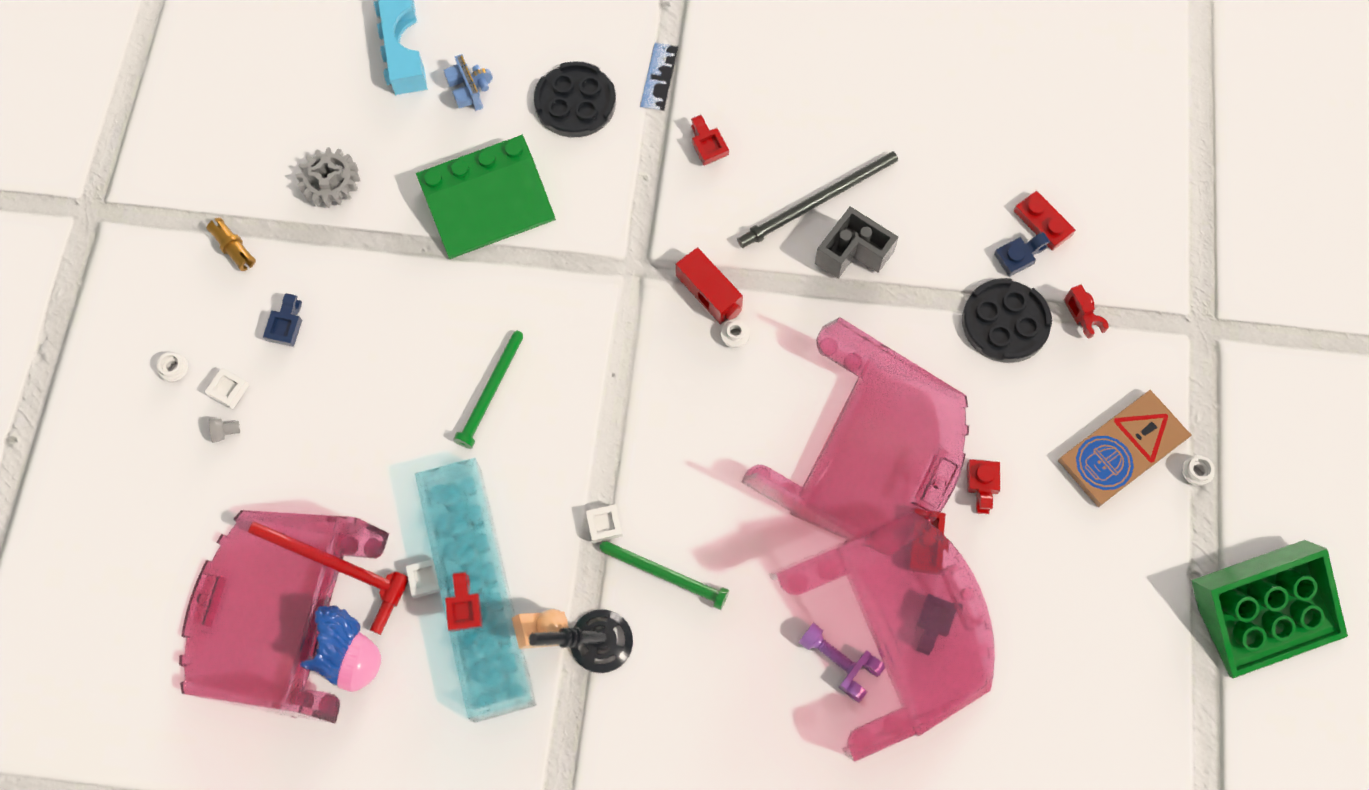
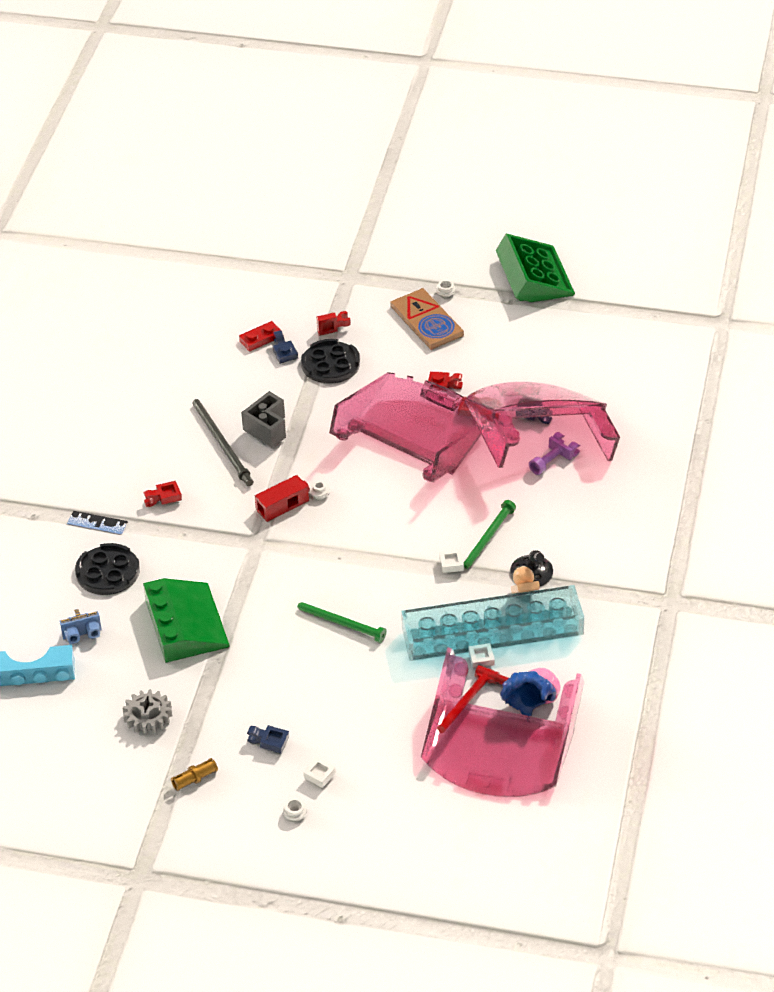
camera: 85 degrees left, 25 degrees down
(219, 429) = (352, 778): light grey piece -> none
(465, 608) = (511, 610): red plate -> none

